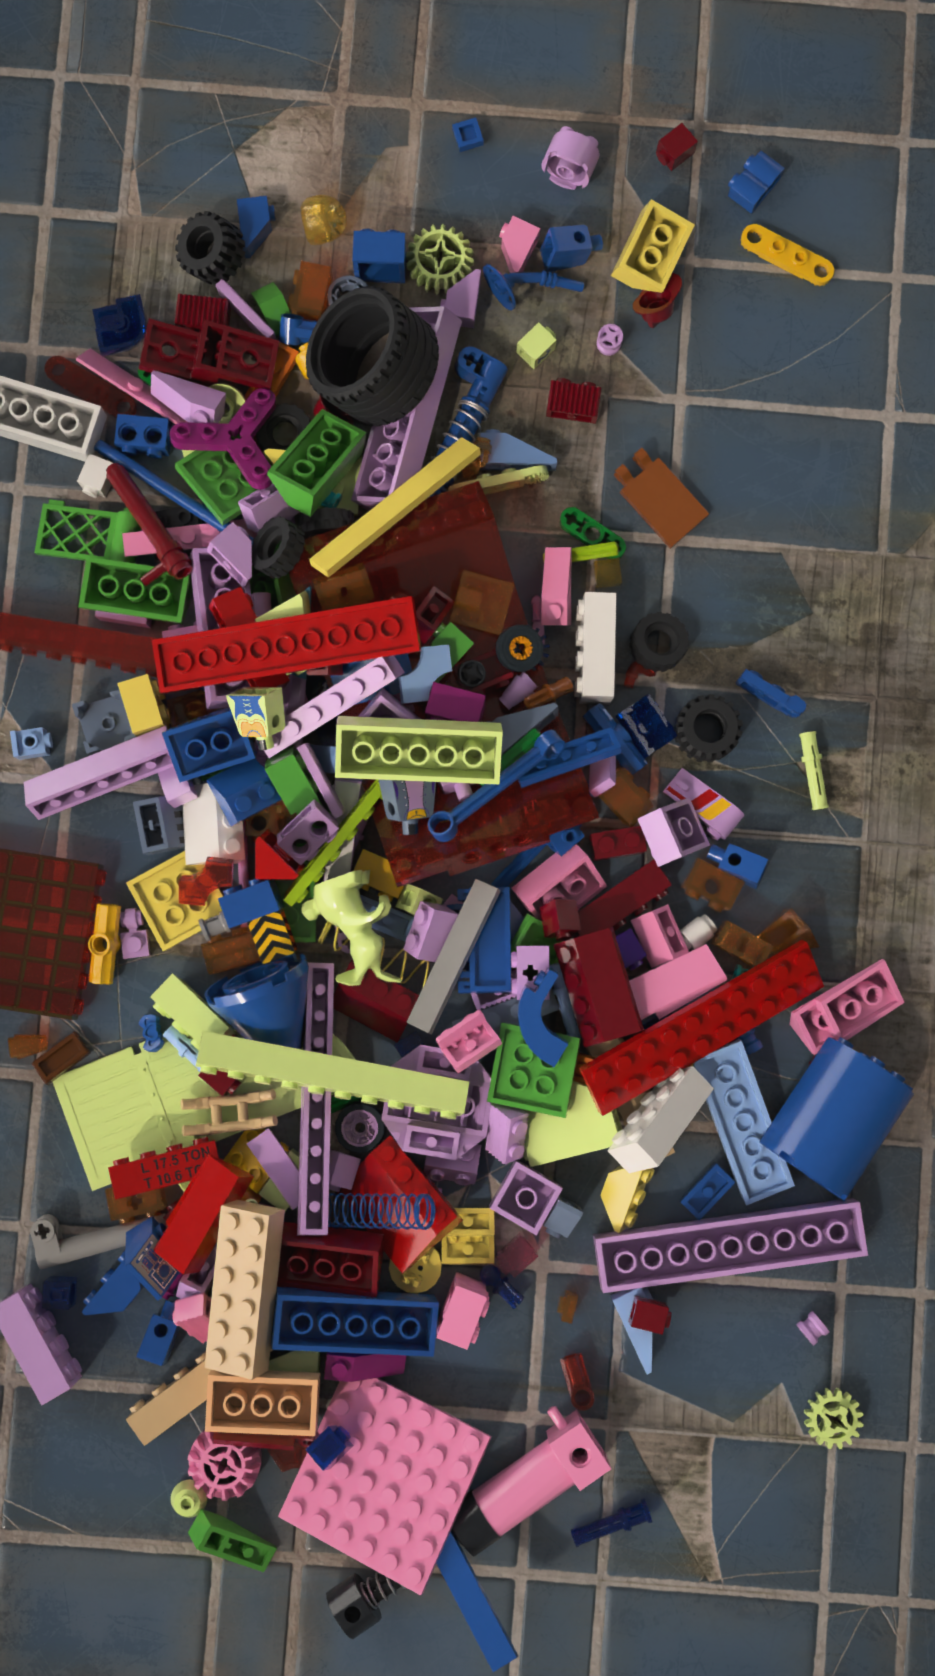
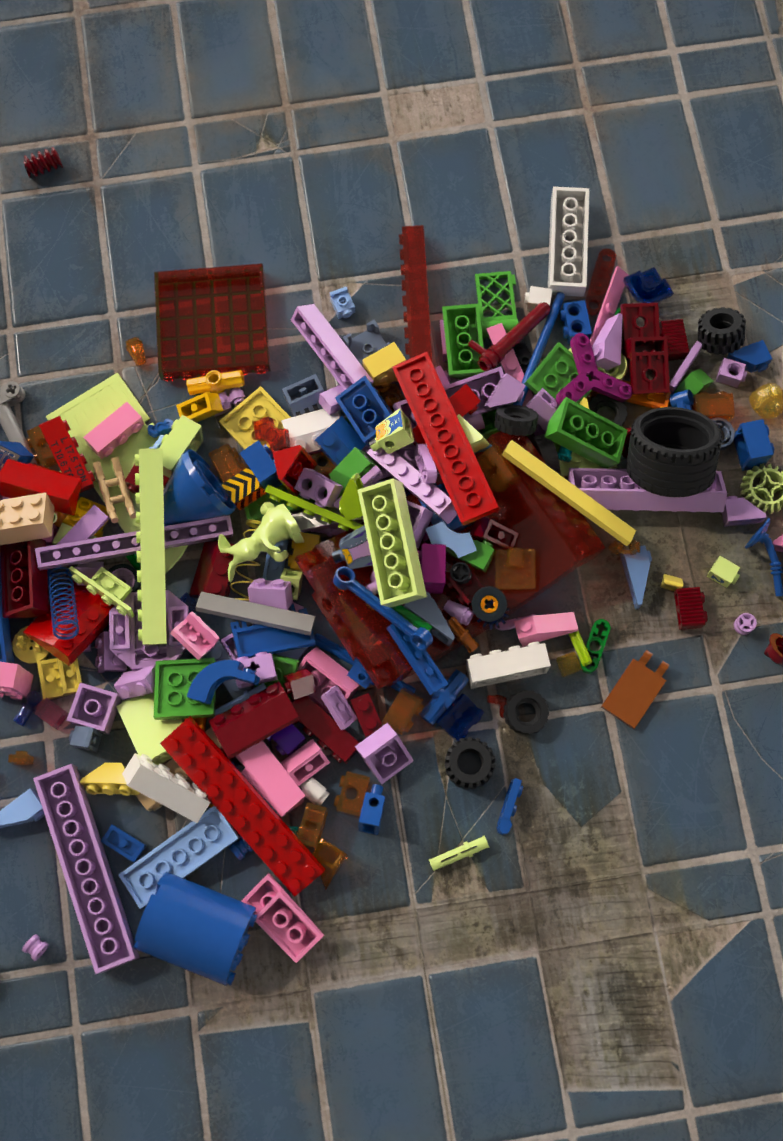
camera: 85 degrees right, 10 degrees down
(60, 1058) = (132, 375): reddish brown tile -> none
(139, 972) = (201, 407): none -> yellow brick
(142, 1097) = (114, 430): none -> bright pink brick
(214, 926) = (240, 445): light grey bush -> none
(269, 265) = (734, 366): none -> lavender brick
(316, 680) = (425, 464): none -> lavender beam
(344, 792) = (350, 502): none -> lime slope
(369, 1145) = (108, 587): none -> yellowish green bracket
(476, 404) = (663, 538): blue piece -> none
(508, 479) = (616, 574): yellowish green plate -> none
(533, 414) = (671, 583): none -> light yellow slope
(602, 776) = (413, 689): lavender tile -> none
(602, 875) = (338, 707): none -> lavender plate
(649, 1315) = (22, 816): dark red brick -> none
(712, 808) = (412, 776): lavender door -> none

